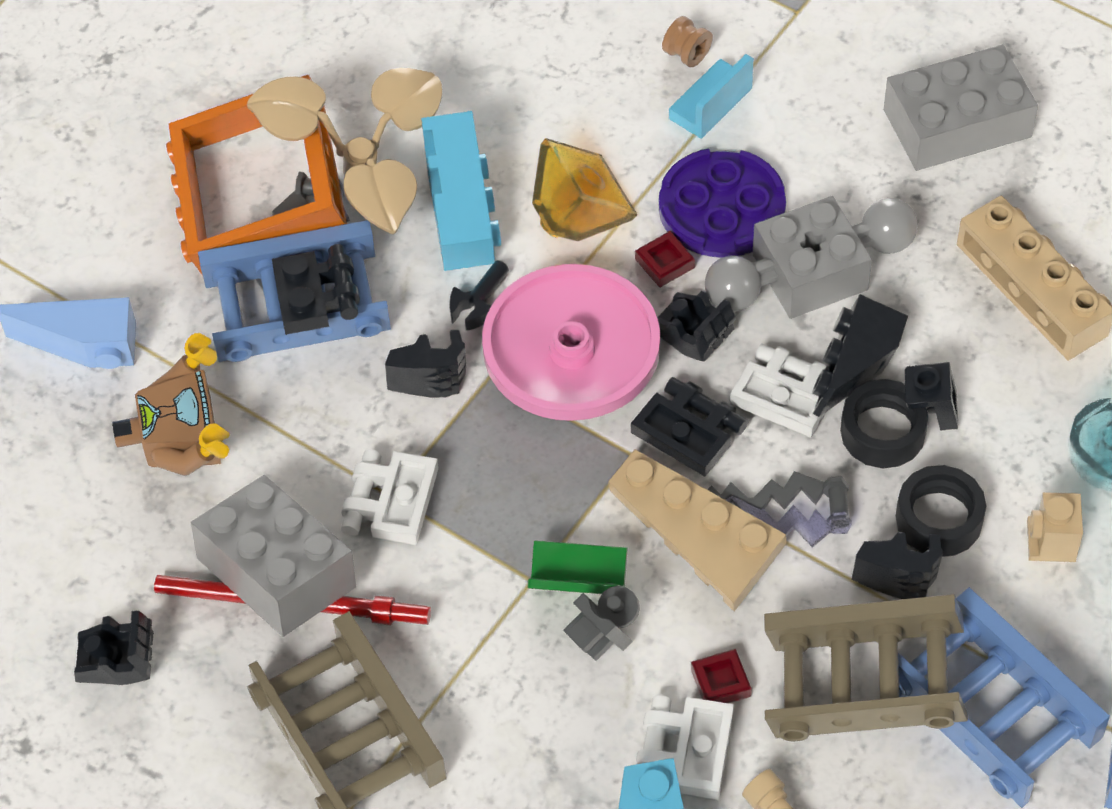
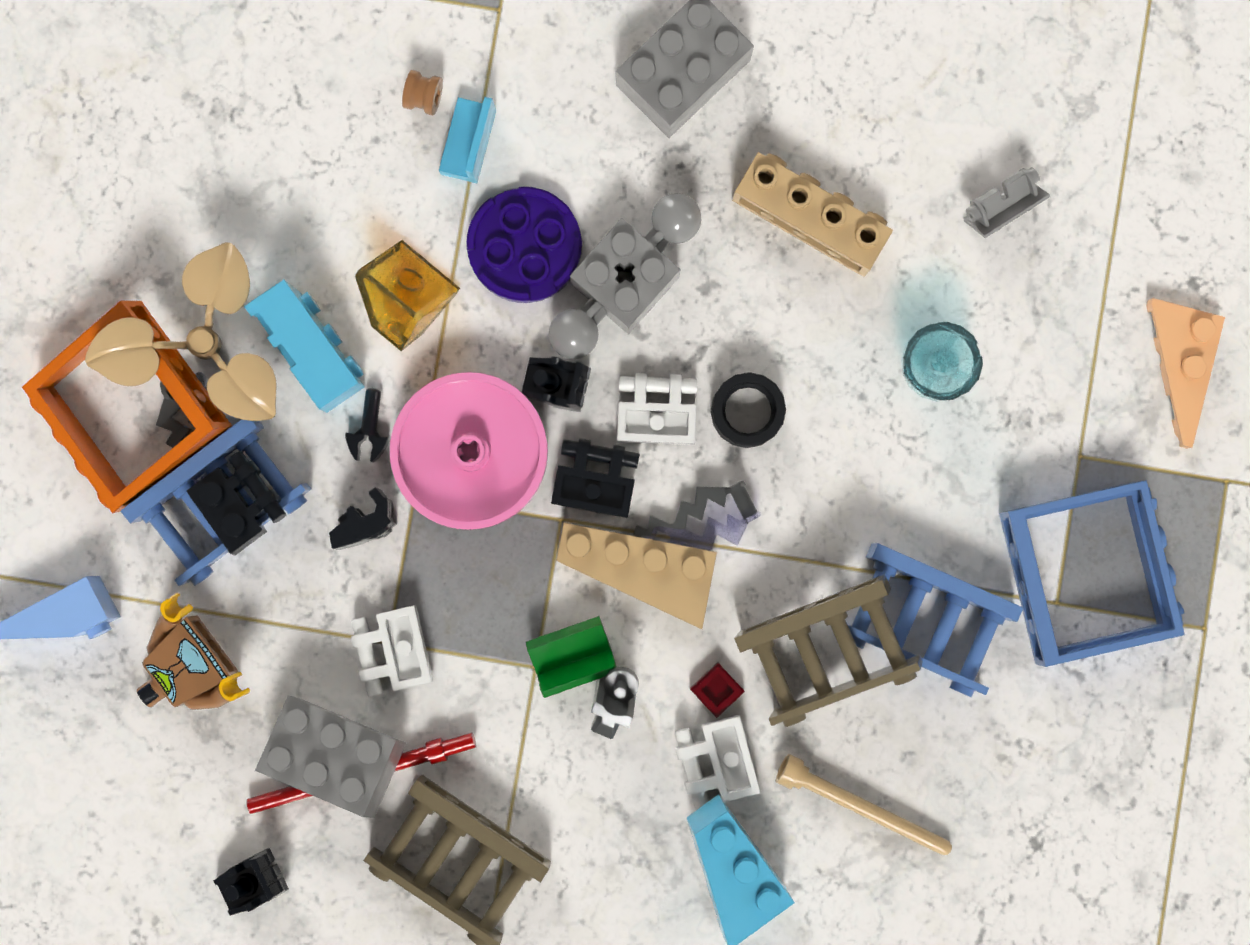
camera: 25 degrees left, 30 degrees up
(664, 259) = (503, 323): dark red tile -> none
(863, 349) = (705, 350): black slope -> none
(898, 570) = (807, 541): black hand -> none
(933, 388) = (776, 371): black bracket -> none
(946, 481) = (853, 469): black tyre -> none
(1055, 528) = (918, 451): tan brick -> none

